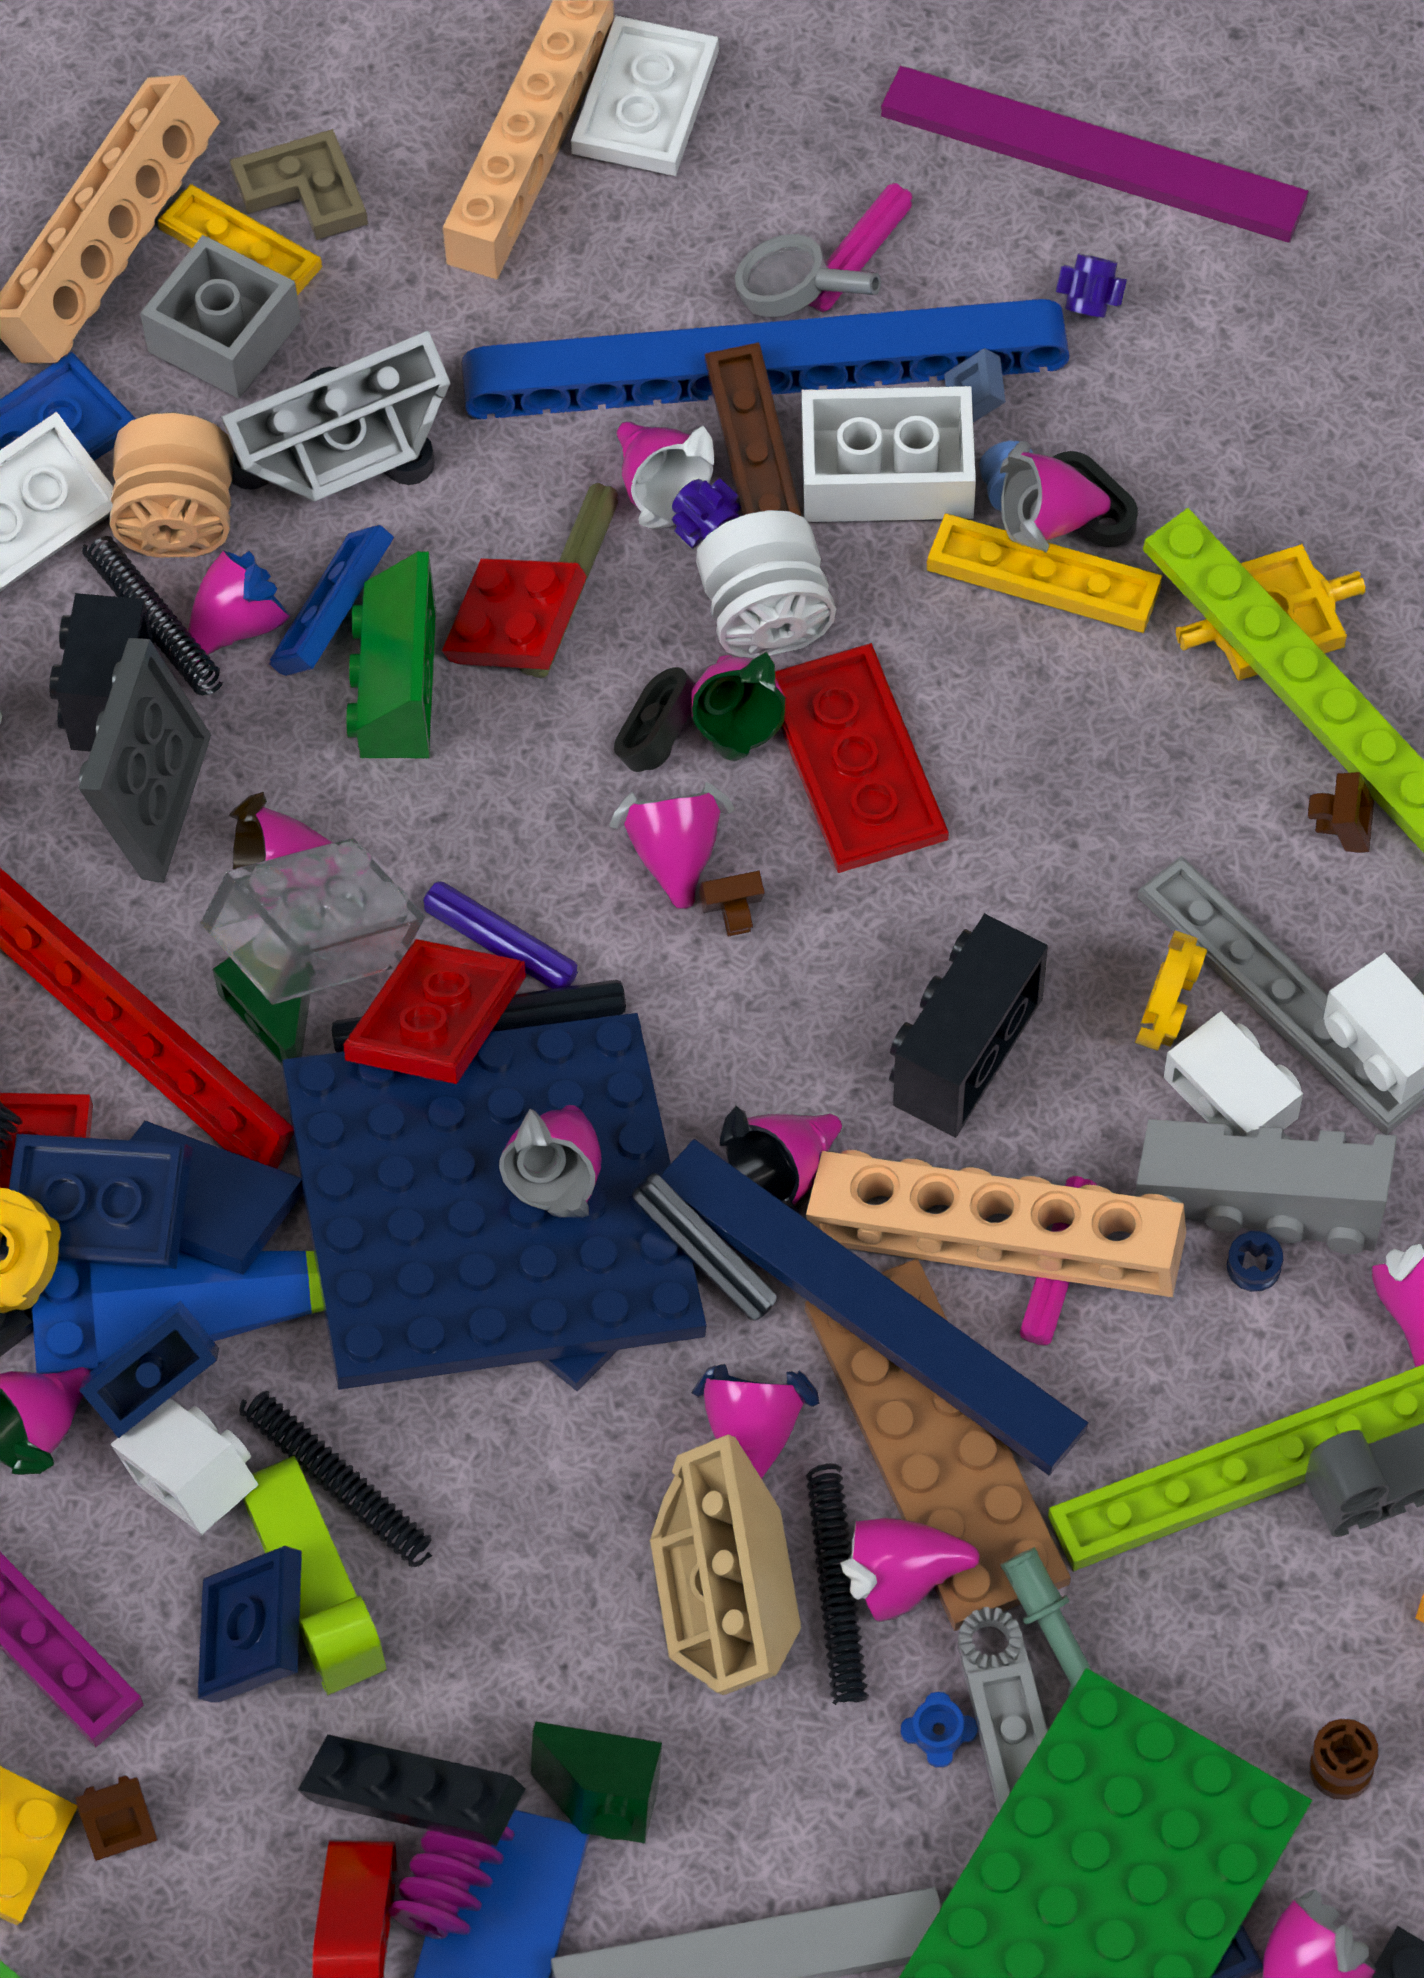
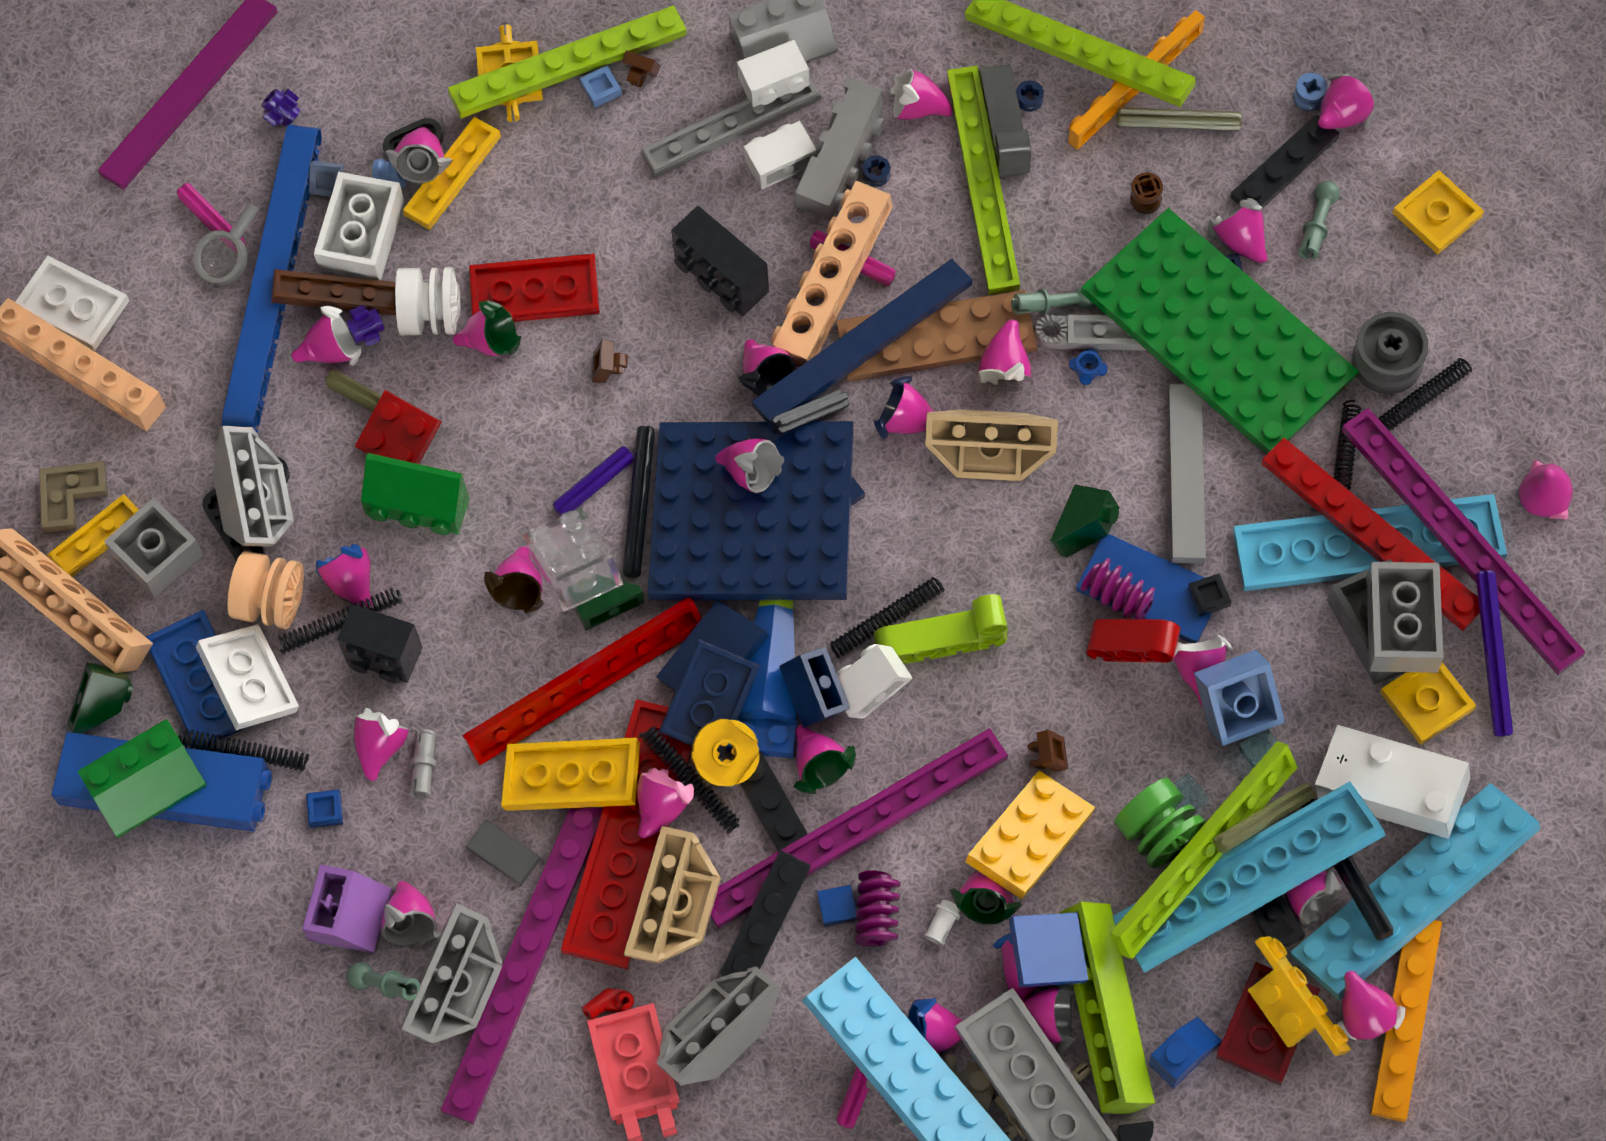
camera: 75 degrees left, 5 degrees up
(144, 760) = (448, 628): dark grey plate -> none
(250, 1625) = (966, 665): dark blue tile -> none
(330, 600) = (359, 525): blue tile -> none
(412, 1789) = (1077, 599): black plate -> none
(435, 1011) = (639, 514): red tile -> none
(655, 720) = (487, 379): pearl dark grey plate -> none
(674, 837) = (563, 379): dark pink hat -> none
(854, 1662) = (1045, 399): black piece -> none
(1177, 973) = (725, 166): yellow plate -> none
(1289, 761) = (600, 86): none -> medium blue plate

